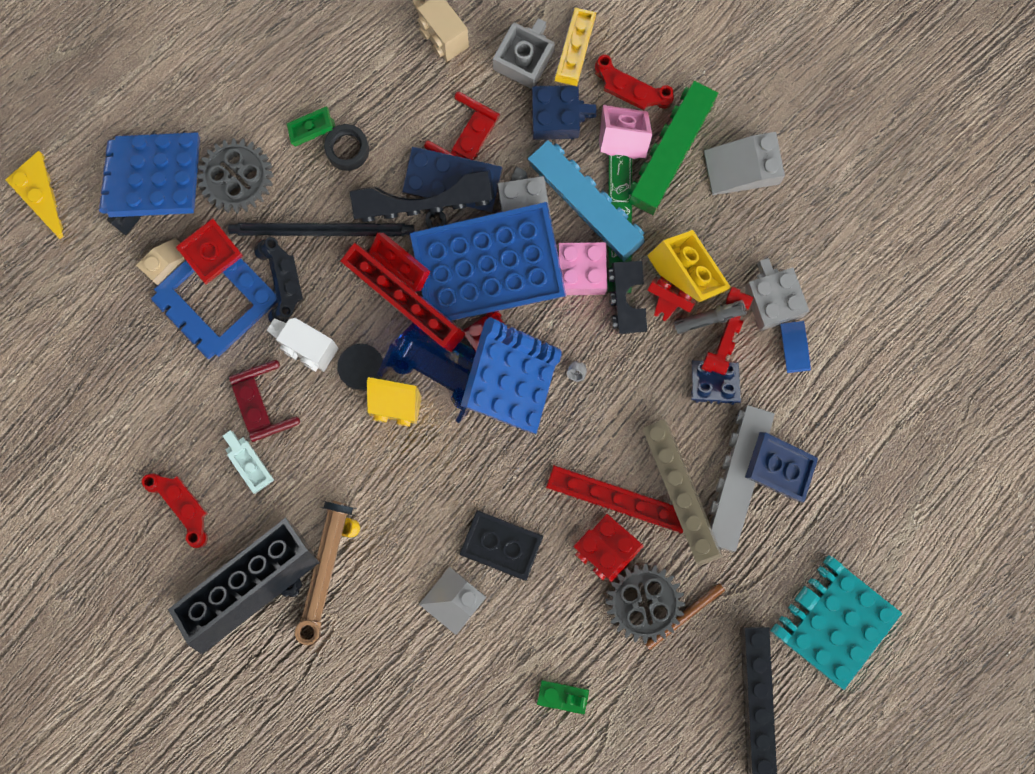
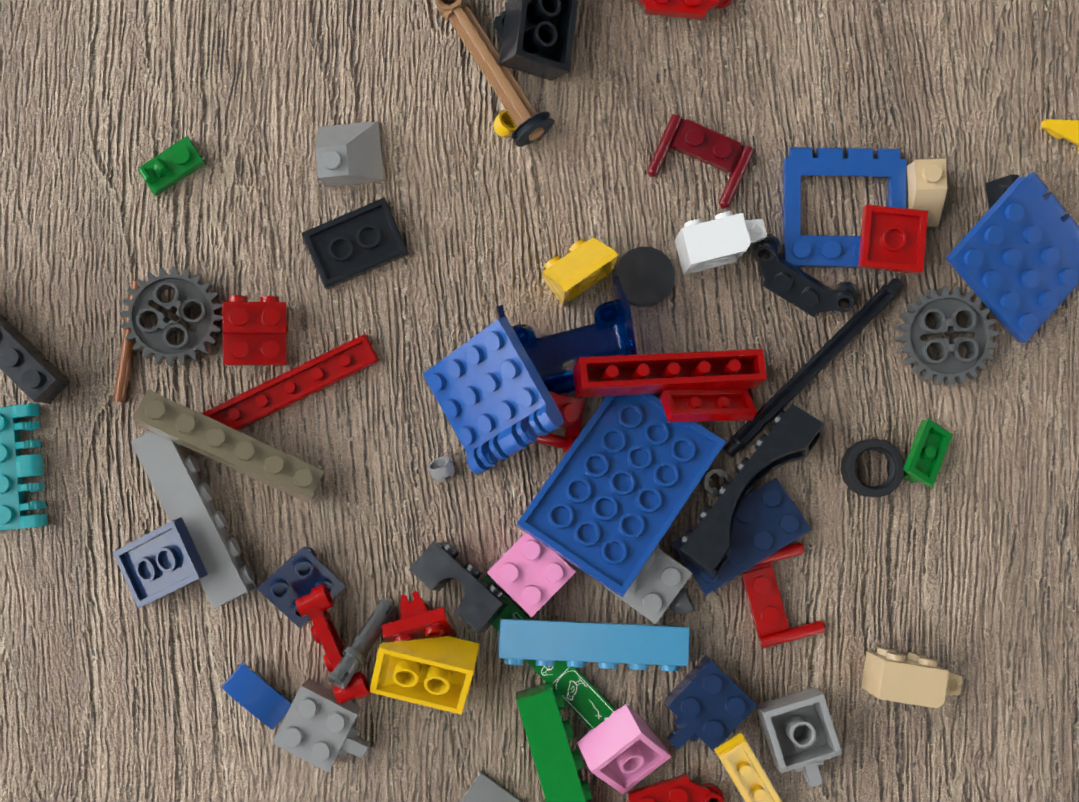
camera: 135 degrees right, 5 degrees up
(247, 462) = (657, 91): light aqua hinge -> none

